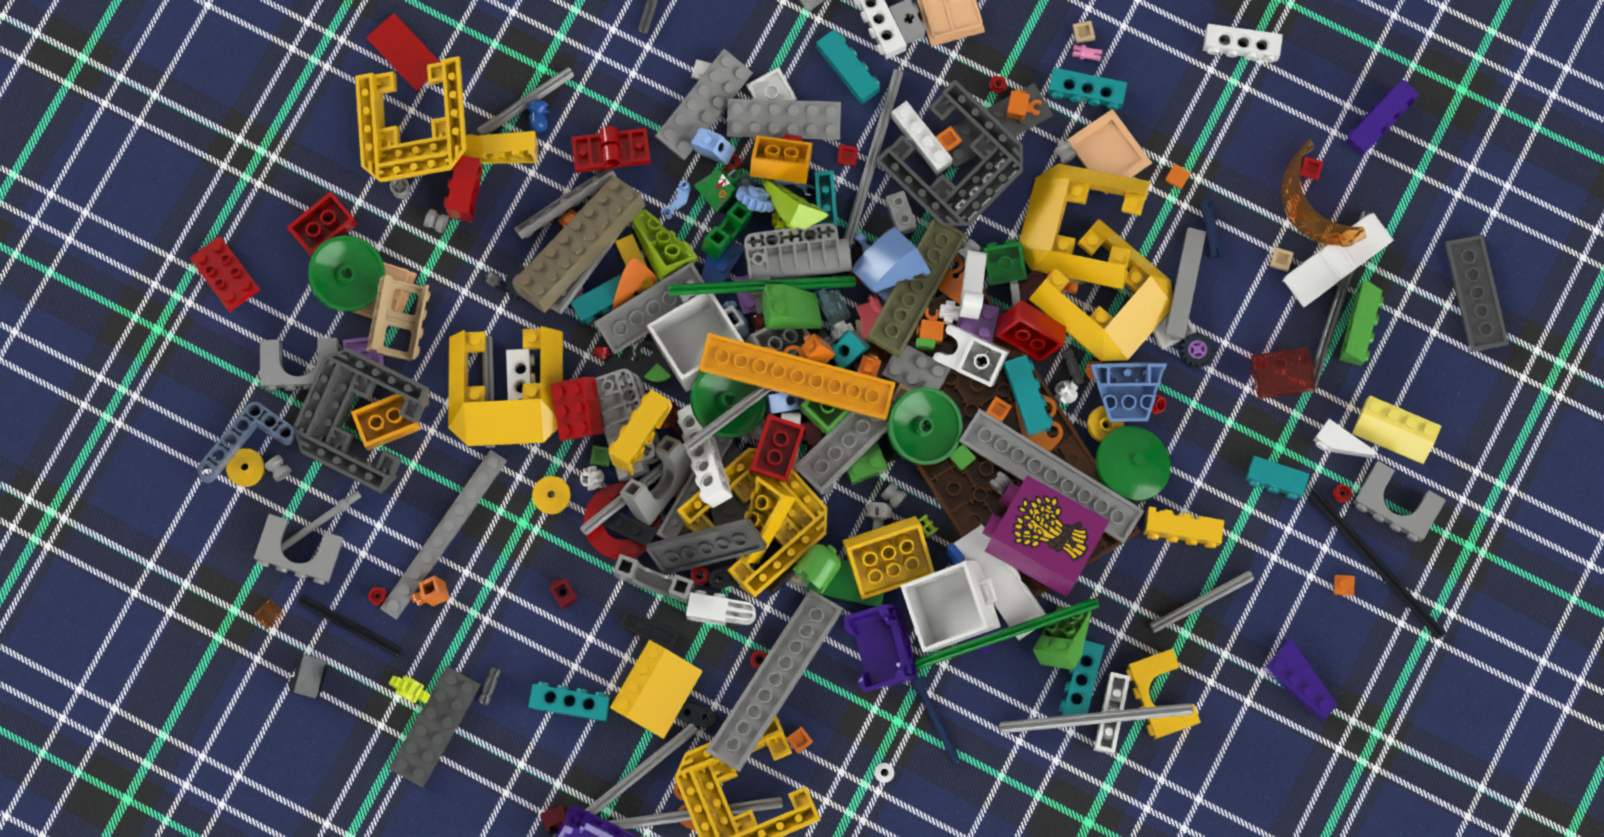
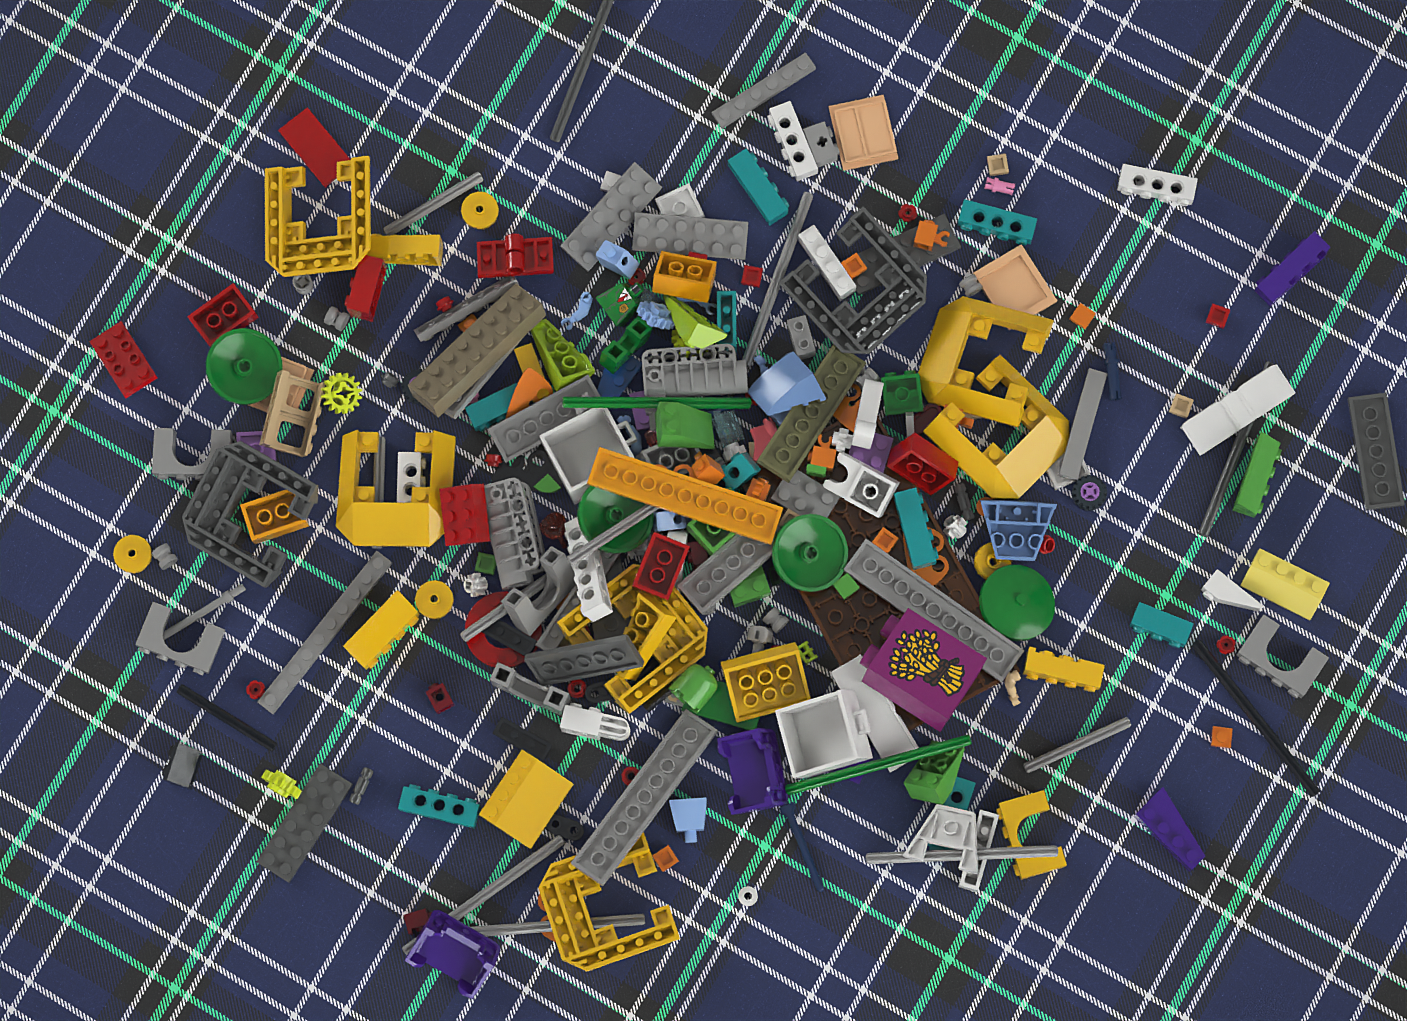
camera: 10 degrees right, 0 degrees up
(241, 437) = (130, 523): sand blue beam -> none
(268, 614) = (146, 701): clear orange slope -> none
(431, 591) = (309, 688): orange brick -> none
(447, 303) = (343, 404): none -> neon yellow gear
(501, 529) = (382, 630): none -> yellow slope
(537, 118) = (443, 222): blue animal -> none
(543, 200) = (444, 304): none -> red plate
(575, 114) = (482, 219): none -> yellow plate
(639, 431) = (524, 541): yellow wedge -> none
(820, 696) = (689, 816): none -> light blue torso
(954, 555) = (831, 683): blue tile -> none
(1000, 483) = (882, 614): light grey wheel -> none
(1082, 693) = (950, 829): none -> white wing
(1132, 543) = (1010, 682): none -> tan arm
(1282, 372) = (1173, 520): clear red slope -> none
(1302, 214) = (1205, 362): clear orange windscreen -> none

